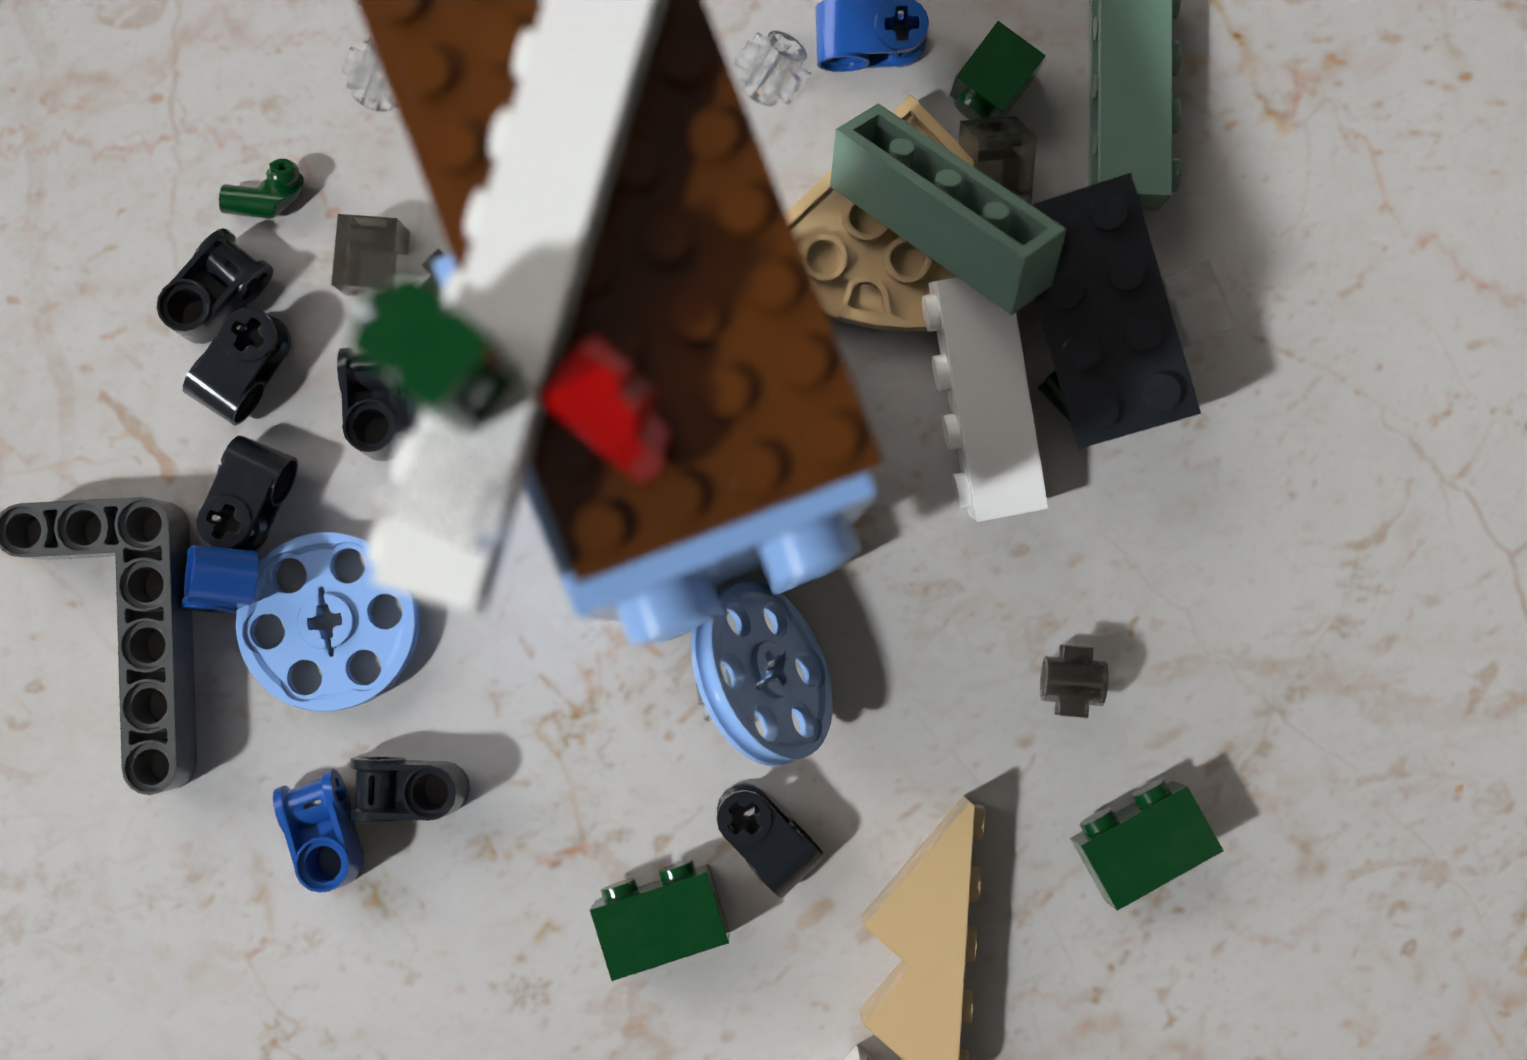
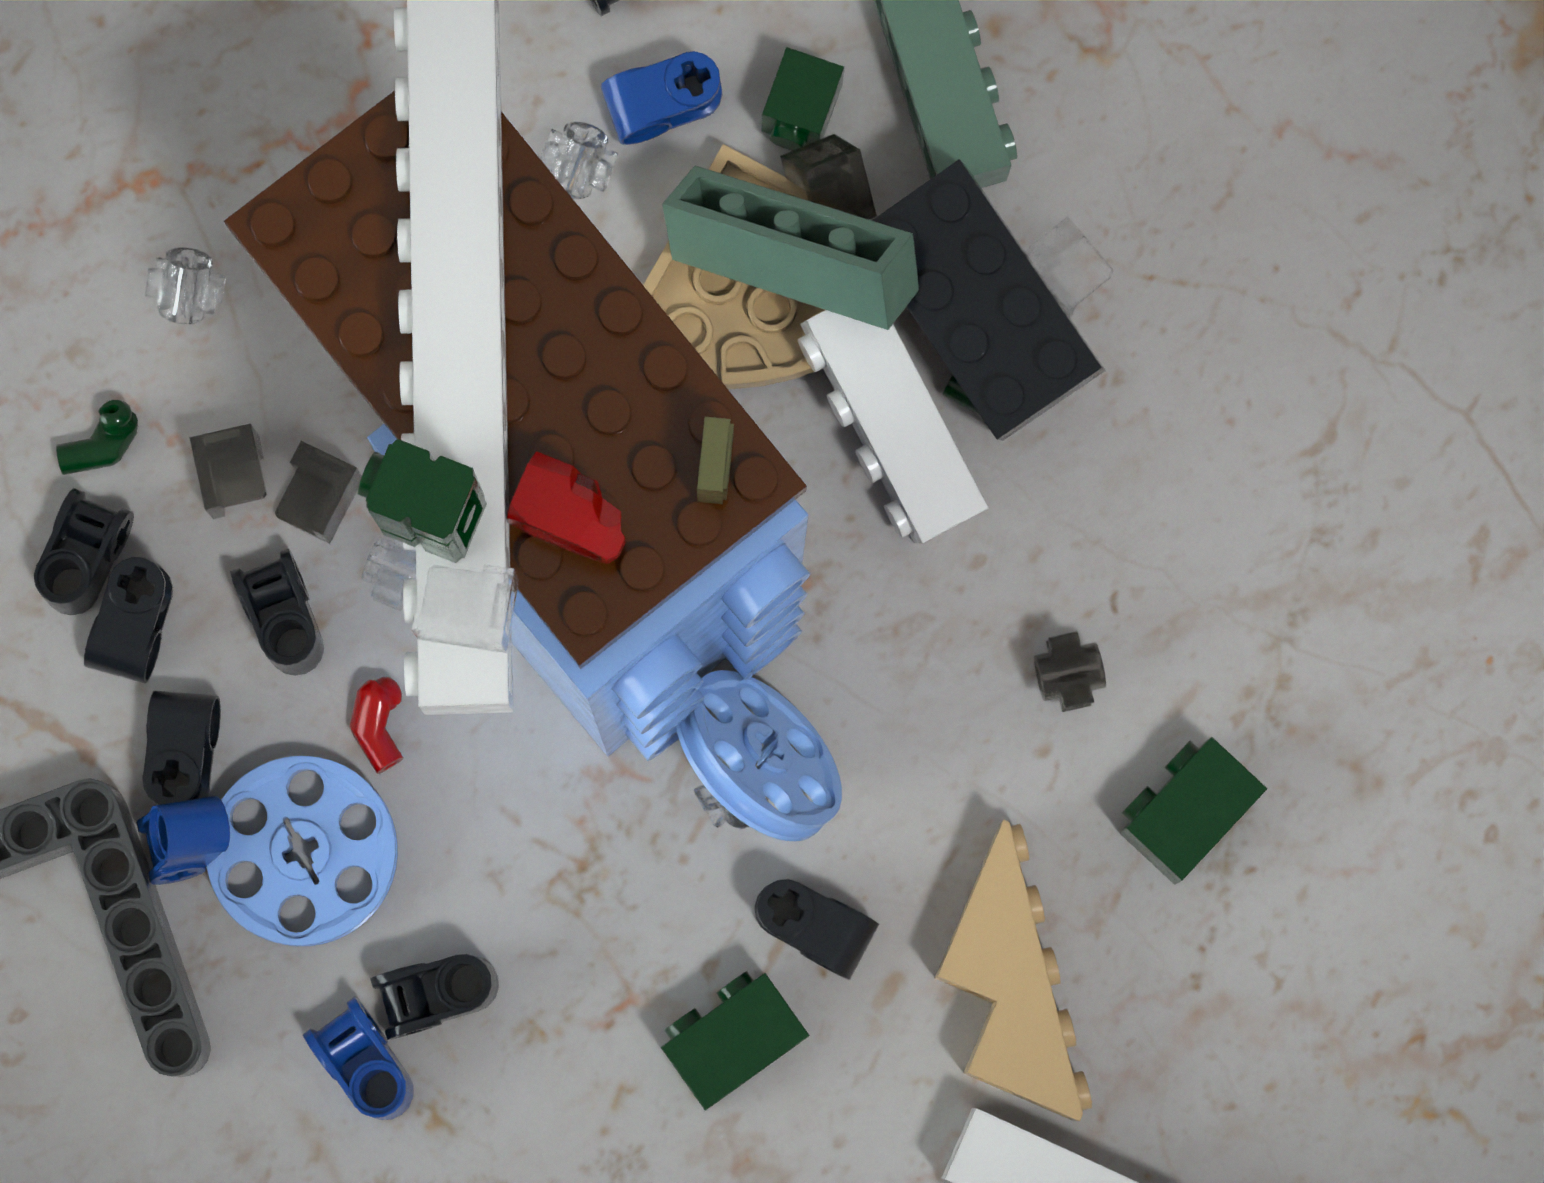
camera: 25 degrees left, 5 degrees down
(792, 406) = (715, 460): none -> olive tile

